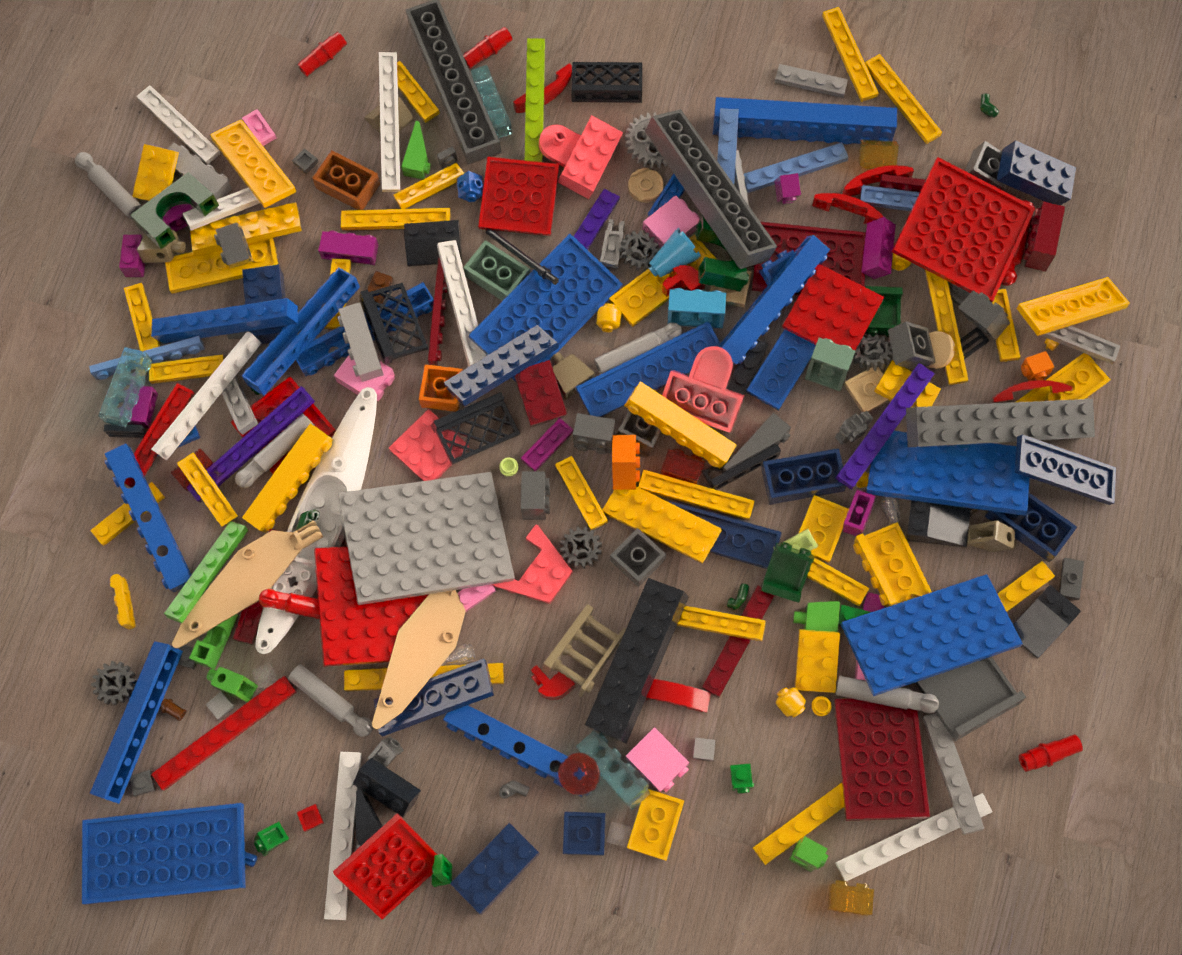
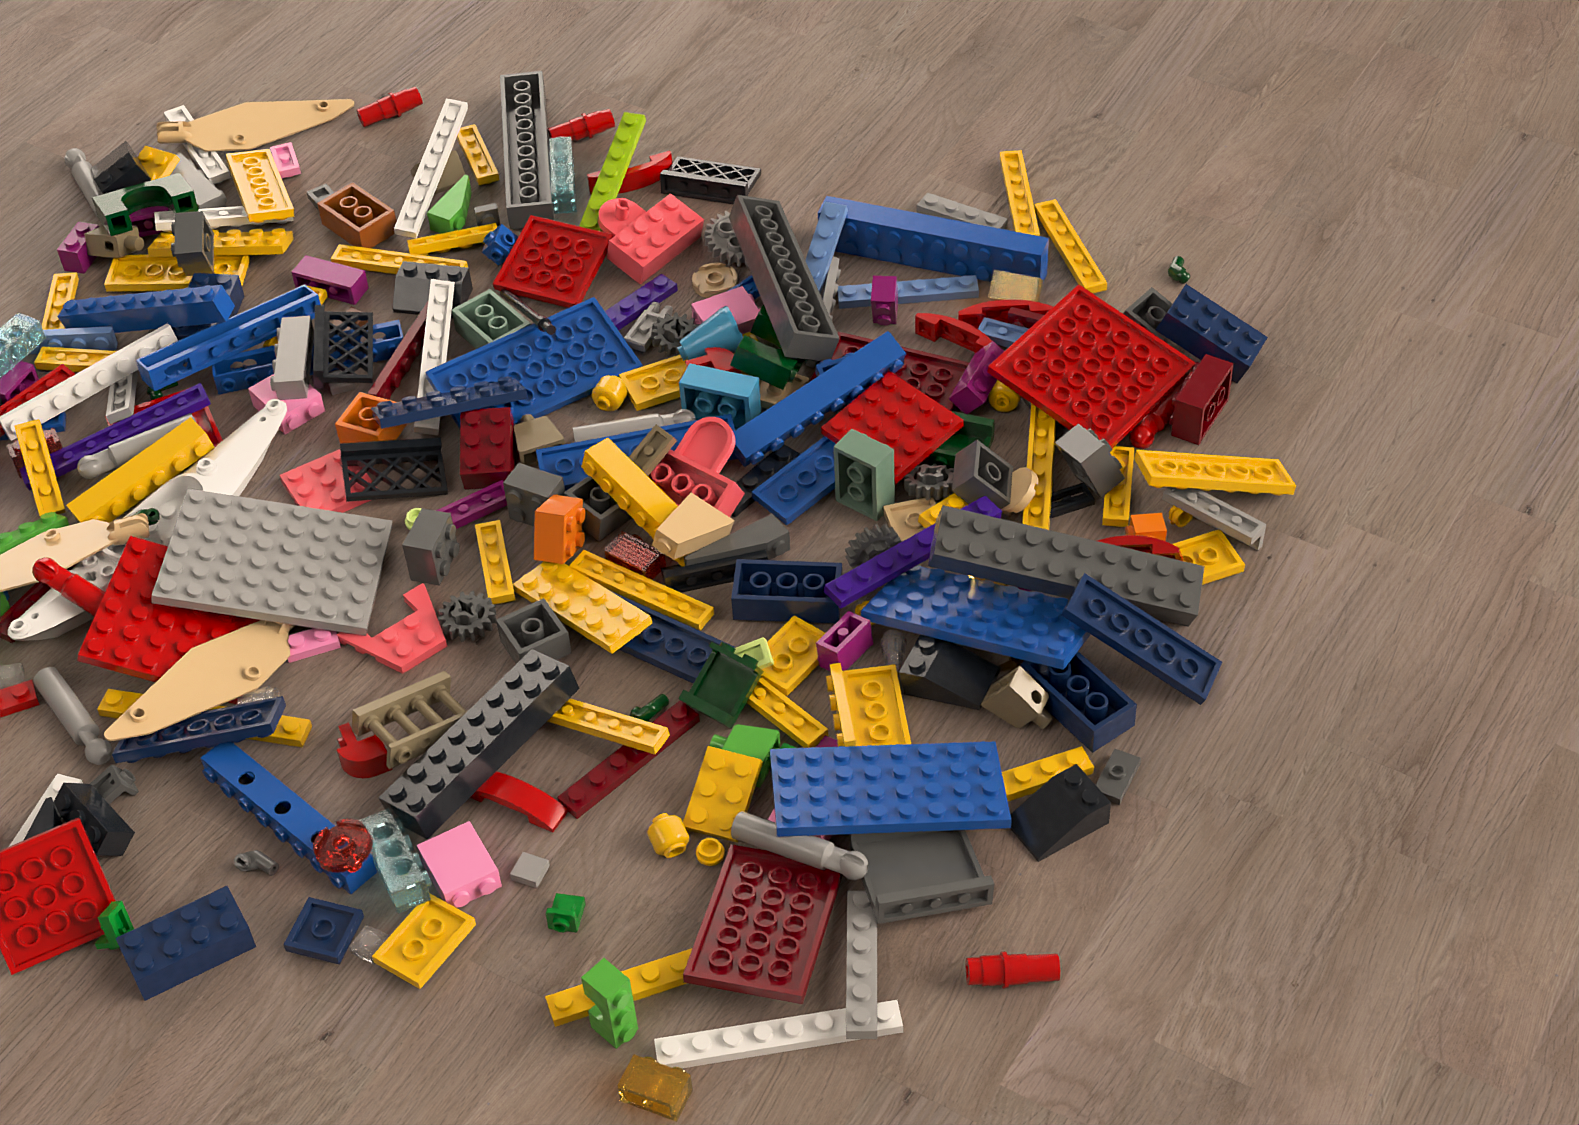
camera: 15 degrees right, 25 degrees down
(134, 176) = (119, 170): none -> black slope
(217, 95) = (251, 124): none -> tan wing
(673, 381) = (652, 449): none -> dark tan plate
(723, 445) = (691, 528): none -> tan slope

